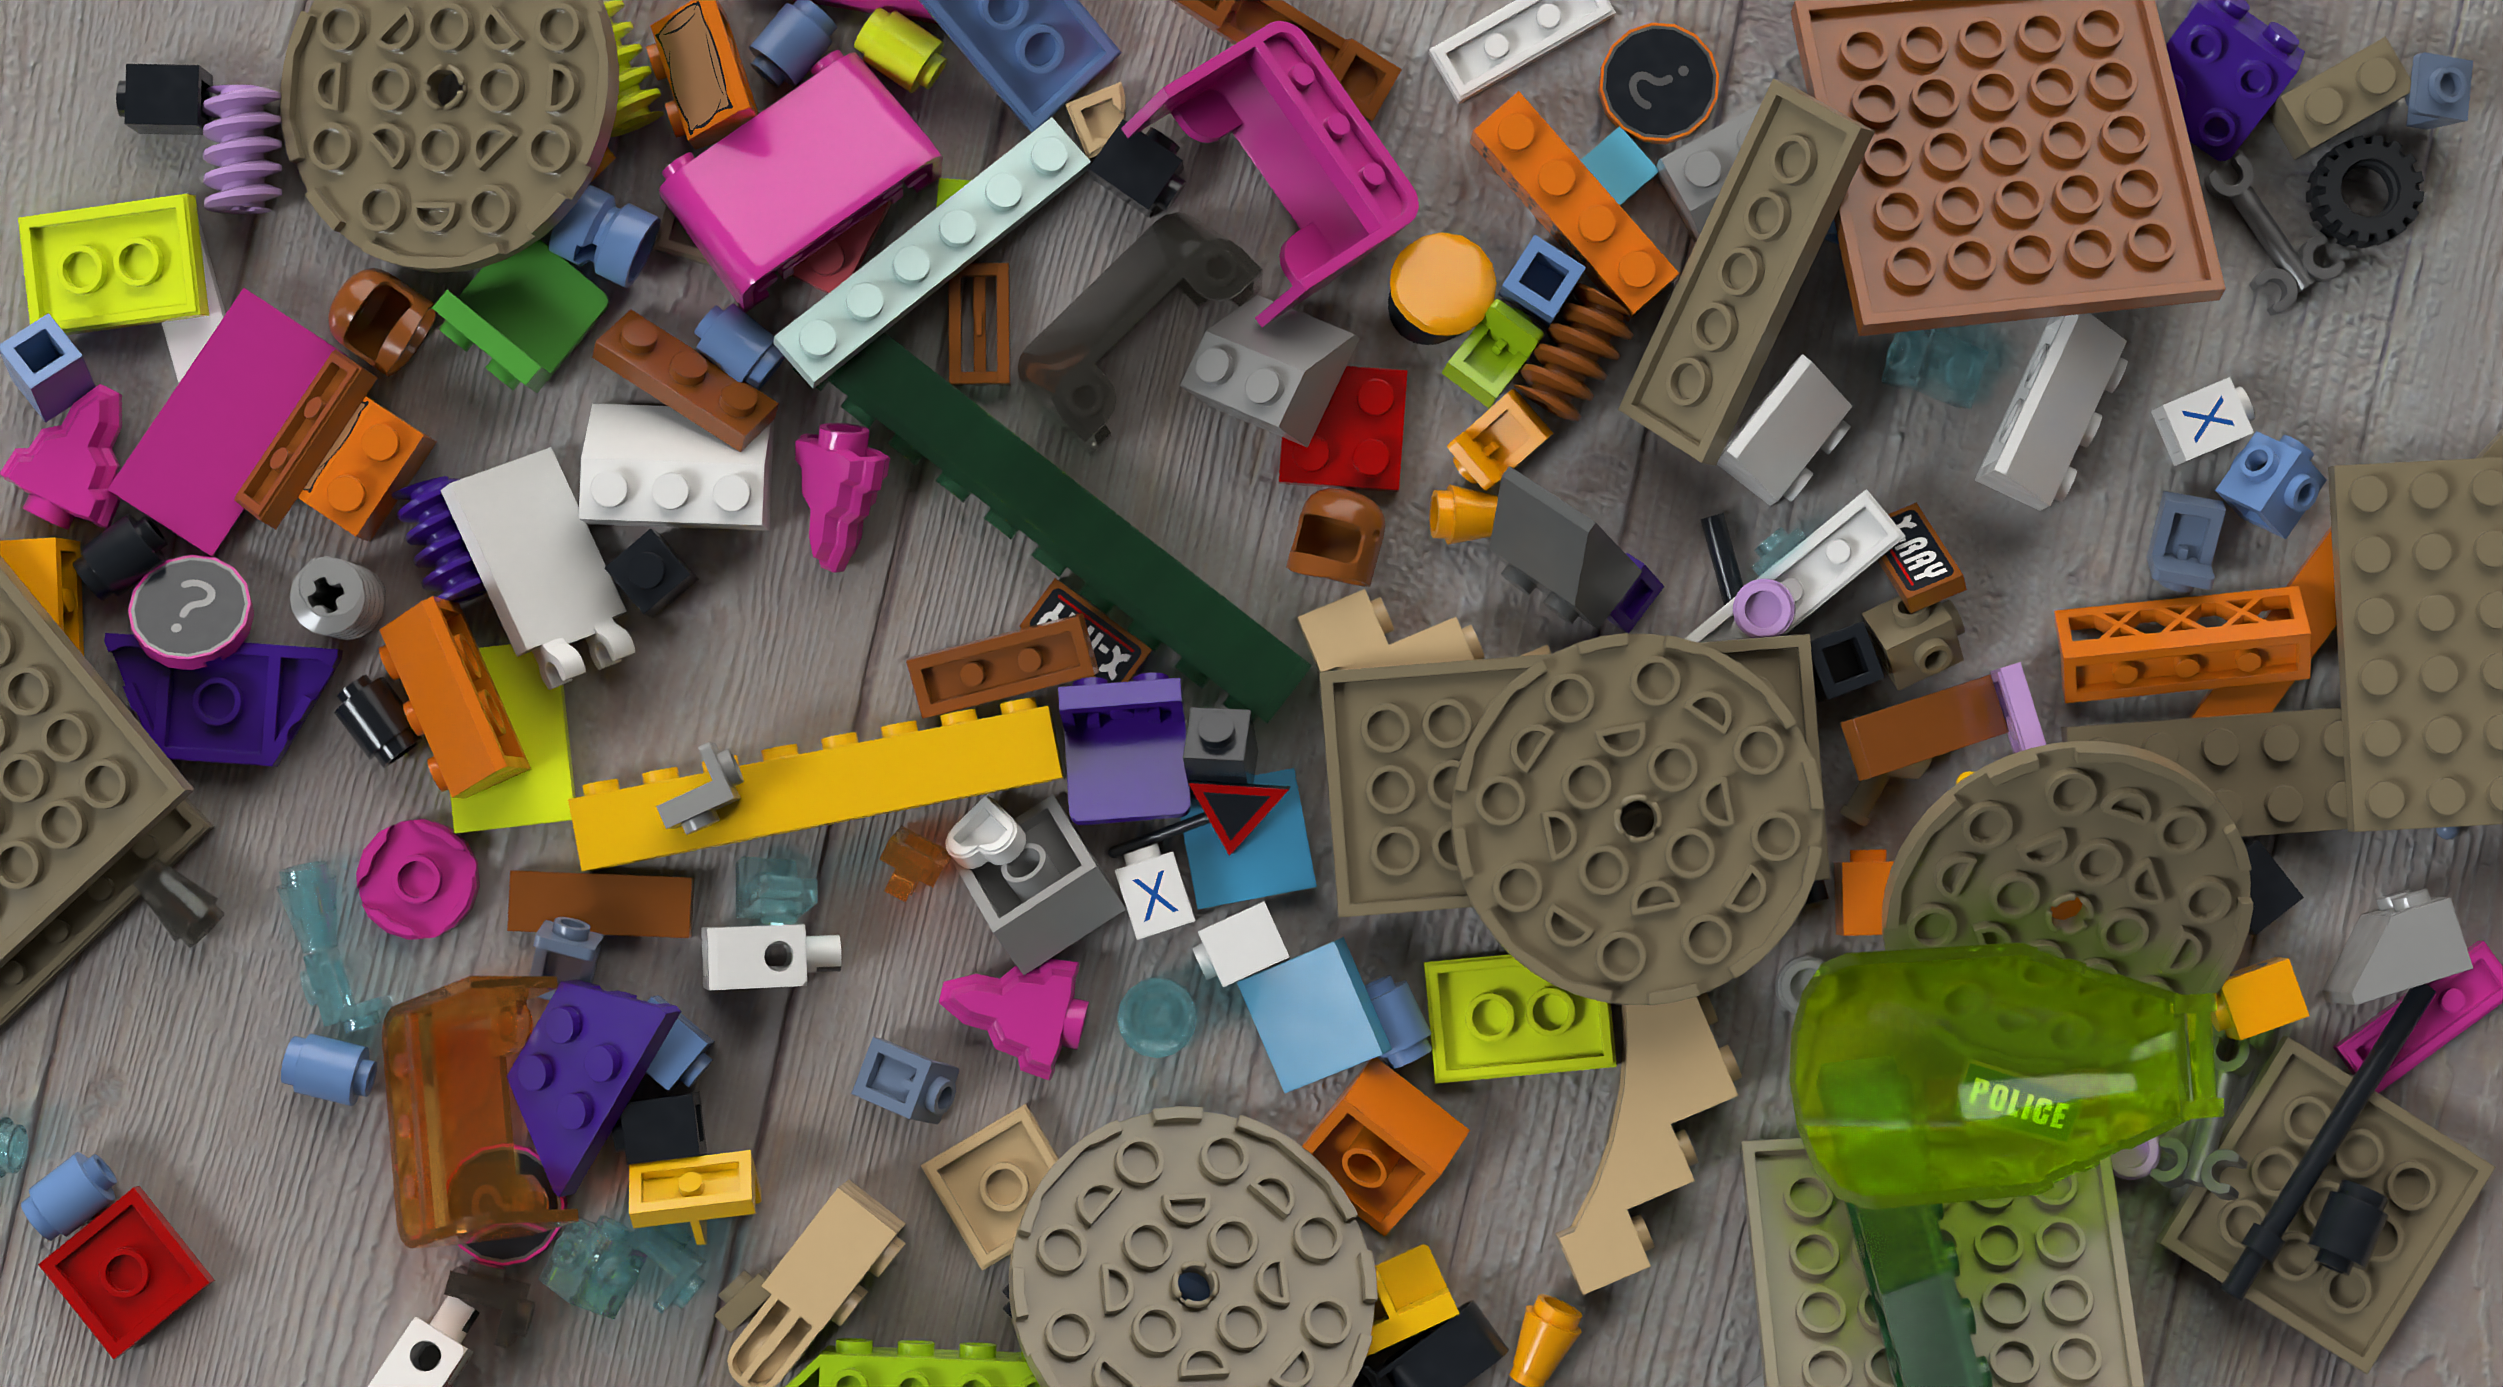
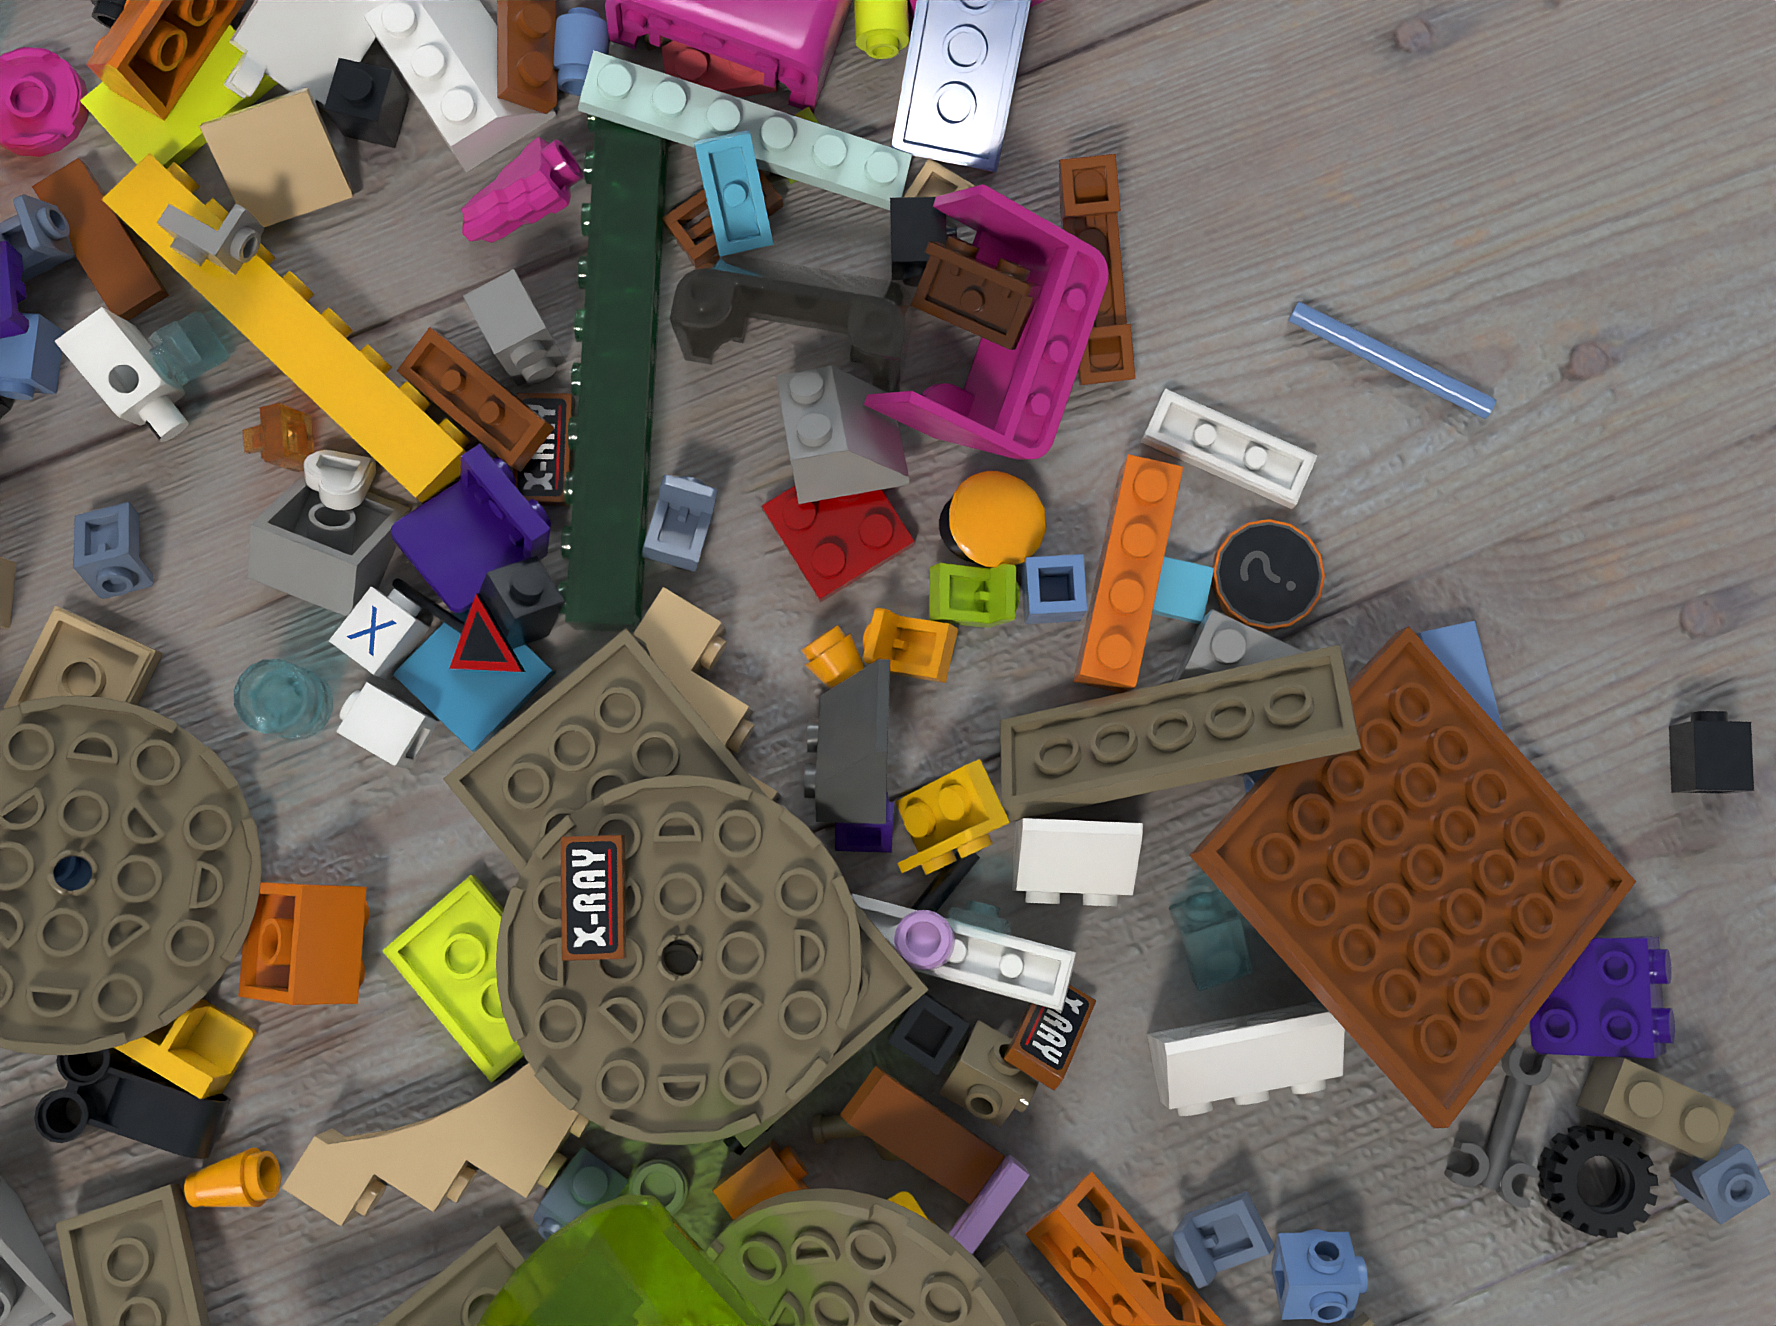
camera: 55 degrees right, 5 degrees down
(651, 689) = (278, 158): none -> tan tile
(973, 584) = (515, 329): none -> light grey brick
(986, 304) = (733, 192): none -> medium azure plate
(1023, 1013) = (221, 602): dark pink rock -> none
(1235, 157) = (975, 293): none -> reddish brown bracket
(1244, 563) = (680, 522): none -> sand blue bracket
(1314, 1015) = (367, 820): dark azure tile -> none
(1338, 537) = (747, 577): dark orange helmet -> none
(1401, 1021) = (405, 883): medium blue brick -> none
(1539, 852) = (593, 897): none -> tile
(1575, 352) = (1018, 655): dark orange piece -> none
(1674, 513) = (951, 815): none -> yellow bracket
(1764, 1058) = (580, 1187): none -> sand blue bracket
(2204, 420) = (1325, 1183): white brick -> none

